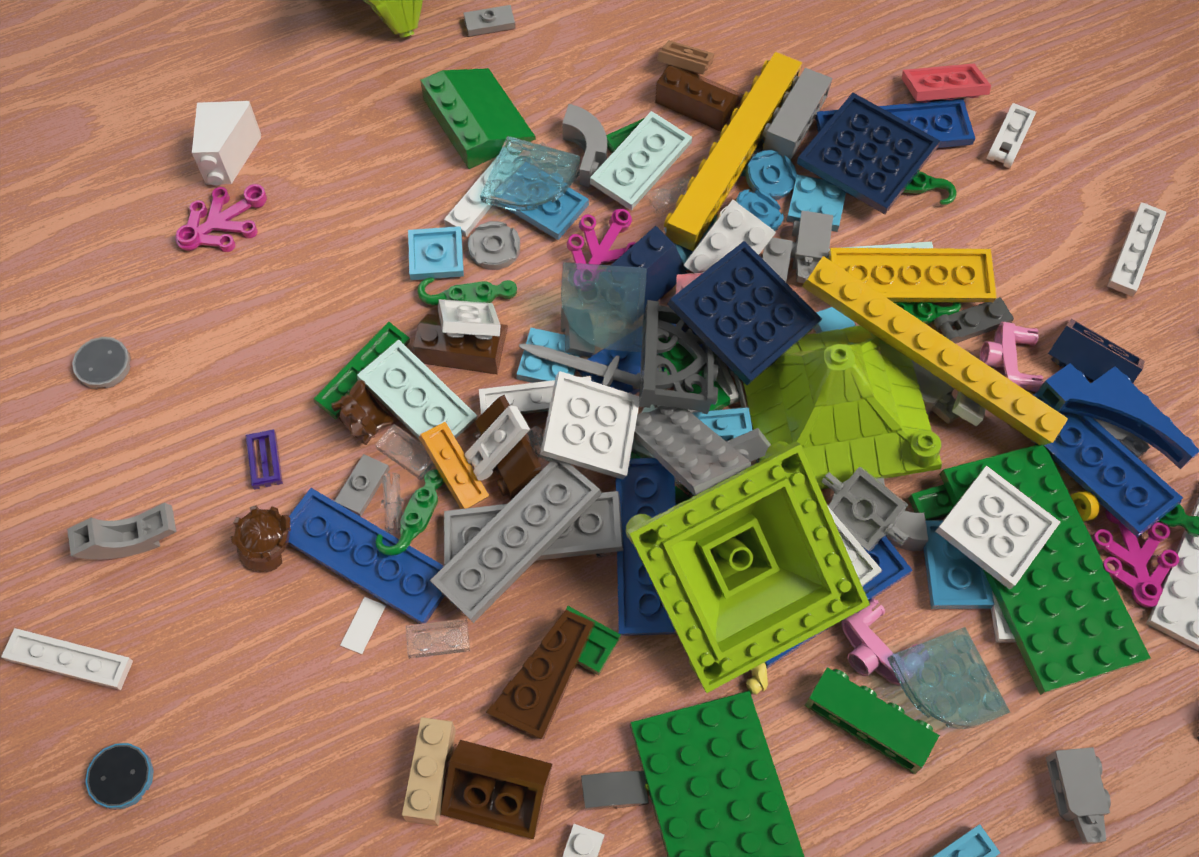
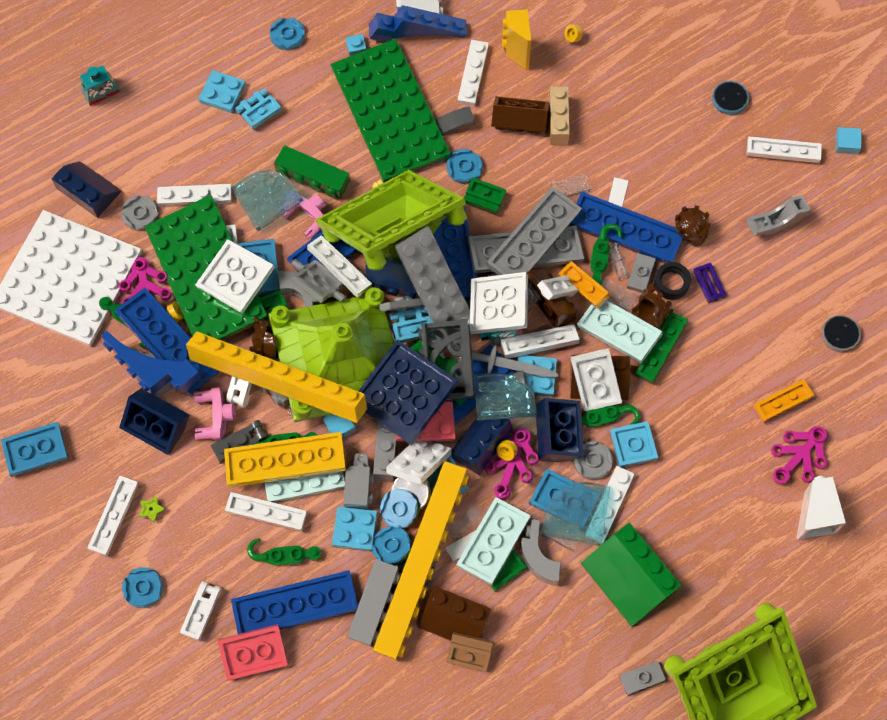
camera: 175 degrees right, 5 degrees up
(217, 282) = (783, 400): none -> light orange plate
(309, 445) = (675, 268): none -> black tyre
(532, 274) = (559, 430): none -> dark blue slope
(540, 684) = (503, 169): reddish brown wing -> none
(606, 254) = (507, 450): none -> yellow tile
(608, 704) = (464, 166): none -> dark azure tile
(678, 171) = (457, 548): none -> white sticker
(868, 152) = (317, 565): dark blue plate -> none
(932, 229) = (266, 511): none -> white plate
(951, 435) = (263, 340): none -> reddish brown hair
(1071, 710) = (189, 194): none -> white plate
(1080, 791) = (194, 150): light grey hinge -> none
(1082, 257) = (151, 514): none -> lime plate
(1086, 170) = (142, 587): none -> dark azure tile
(1160, 689) = (139, 212): none -> light grey tile

